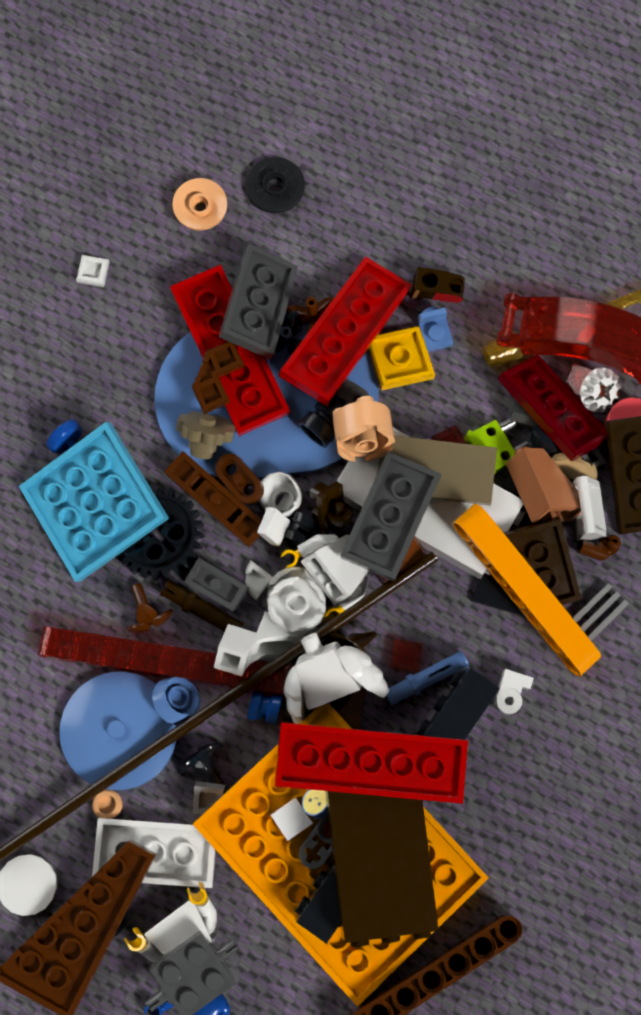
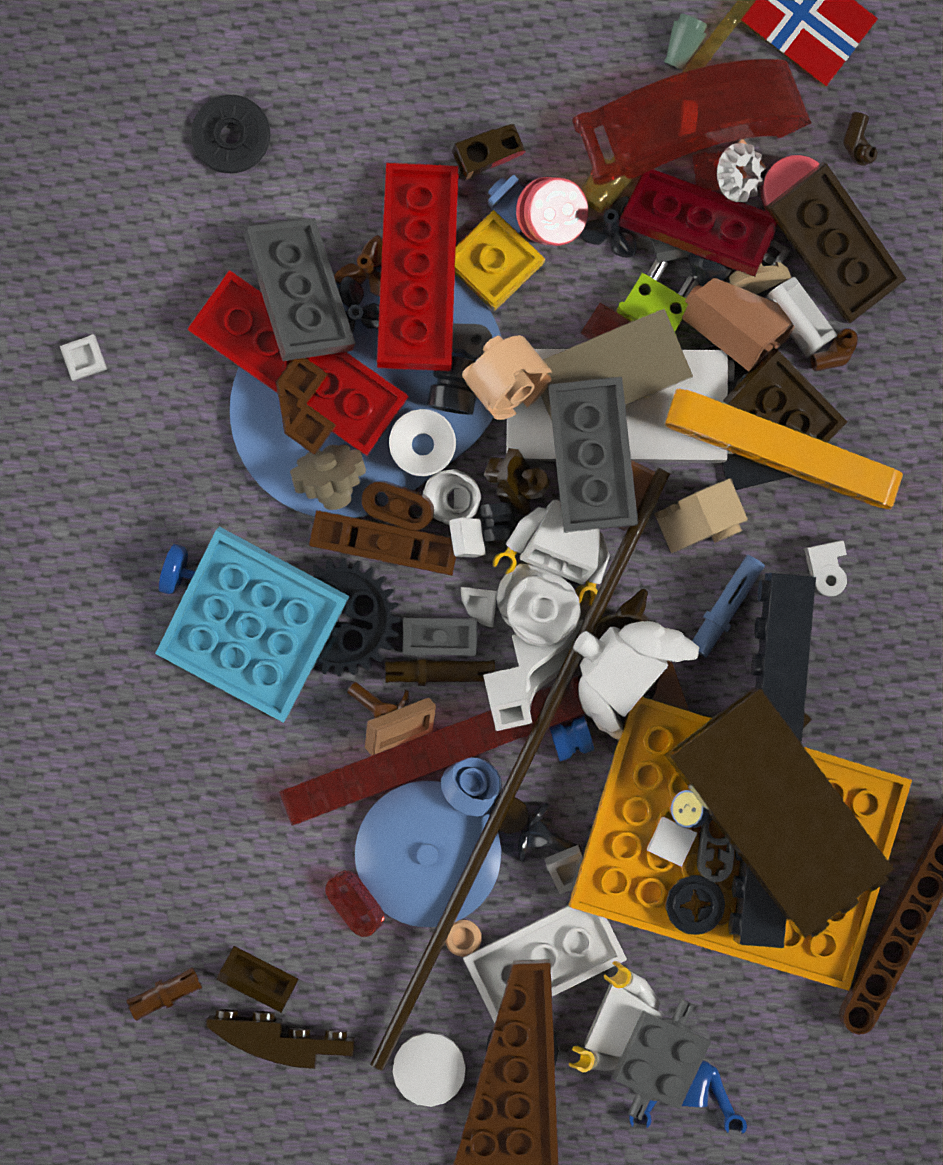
camera: 30 degrees left, 10 degrees up
(47, 735) = (354, 903): none -> clear red beam
(151, 628) = (400, 726): none -> medium nougat tile
(193, 740) = (515, 818): none -> dark brown tile
(199, 192) = (156, 190): light nougat dish -> none
(280, 432) = (417, 423): none -> white piece
(285, 889) = (707, 916): none -> black gear
(371, 763) = (729, 739): red plate -> none
(406, 655) = (690, 593): clear red tile -> none
(445, 603) = (705, 514): none -> tan wedge
(457, 346) = (552, 211): none -> head
(480, 379) = (596, 232): none -> black plant
(611, 287) = (684, 40): none -> sand green cone
(615, 596) = (881, 396): light grey tile -> none

